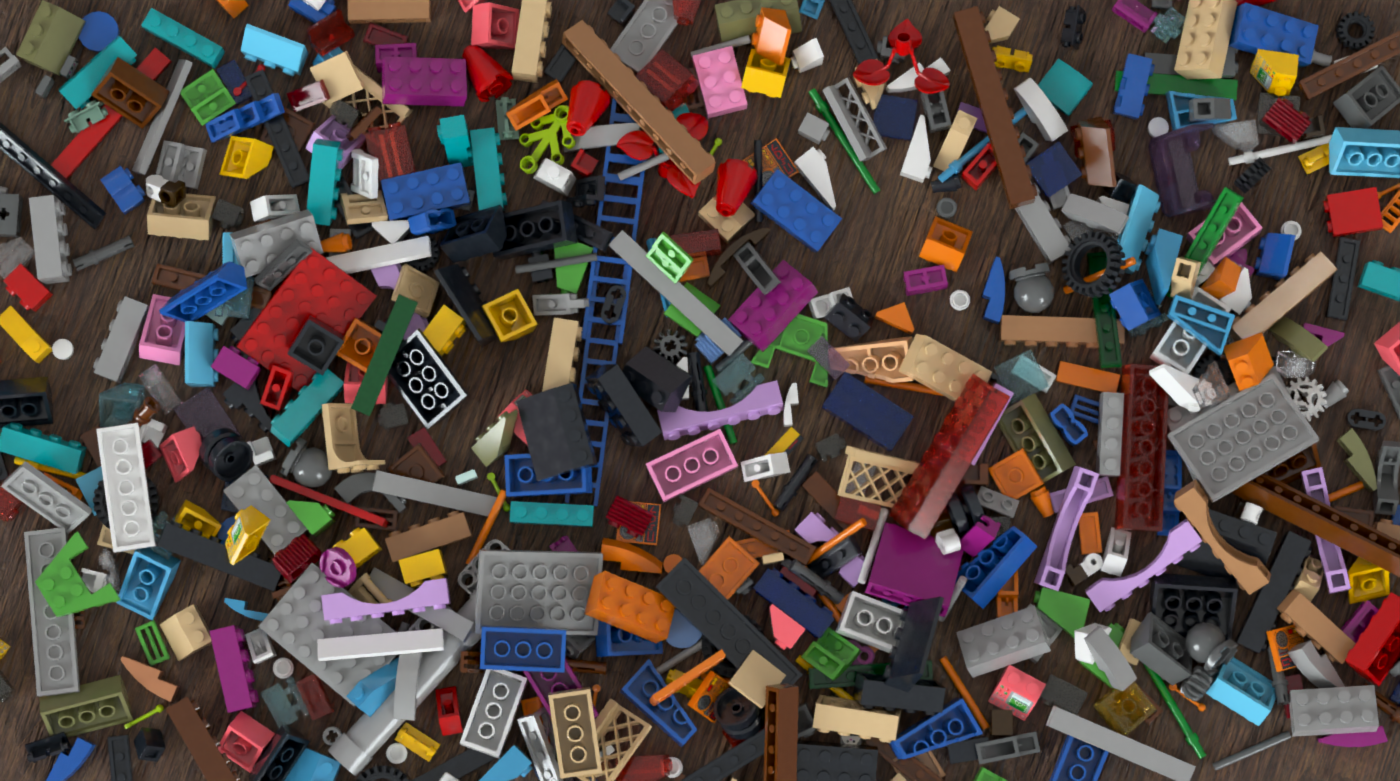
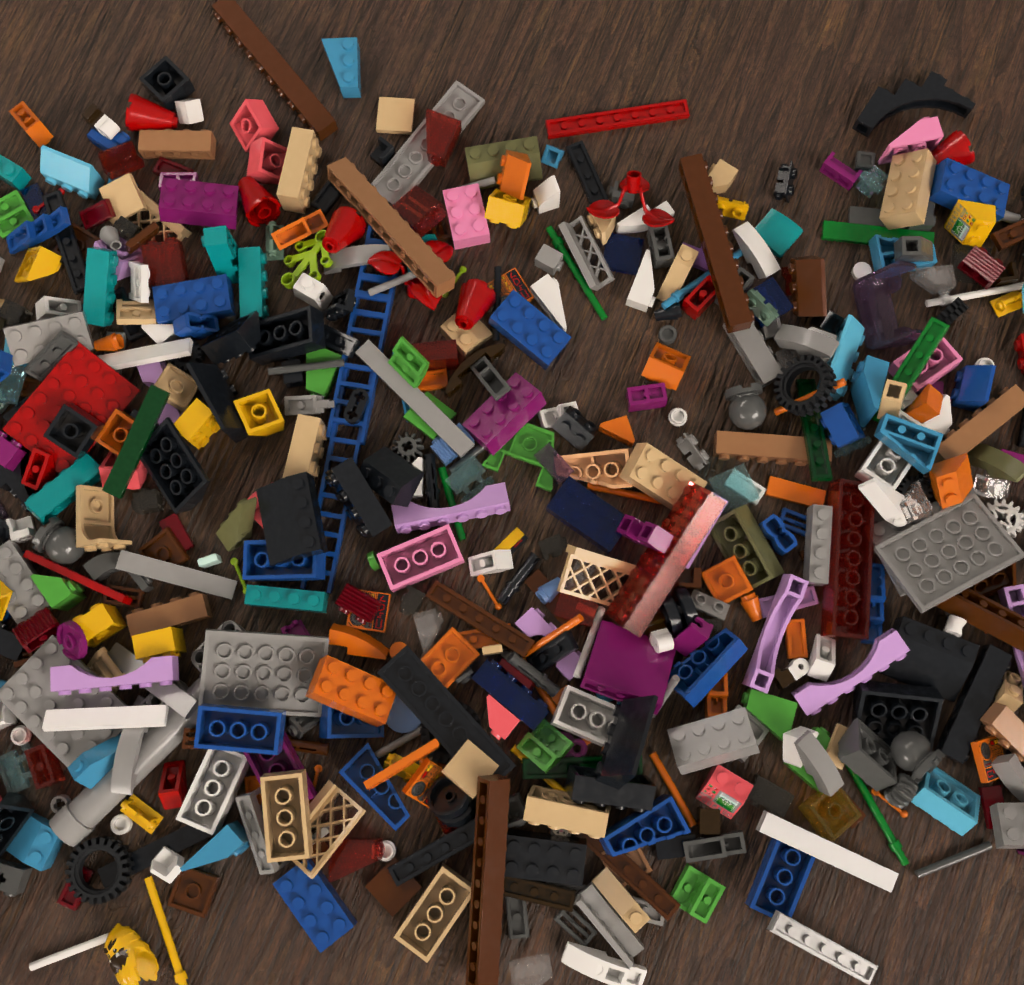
camera: 10 degrees right, 5 degrees down
(331, 126) = (111, 237): none -> light grey cone
(488, 525) = (228, 602): orange bar -> none
(584, 164) = (338, 282): red panel -> none
(641, 469) = (373, 560): none -> bright green tile
(791, 400) = (517, 502): white slope -> none
(828, 495) = (548, 591): none -> medium blue cone
(926, 431) = (645, 533): none -> magenta arch
(983, 341) = (698, 456): none -> light grey hinge
(994, 292) = (710, 411): blue slope -> none
(1051, 184) = (764, 312): none -> sand green hinge
(1133, 86) = (840, 232): blue wedge -> none
(1248, 570) = (952, 680): medium nougat arch -> none
(1279, 682) = (981, 789): dark grey pin -> none

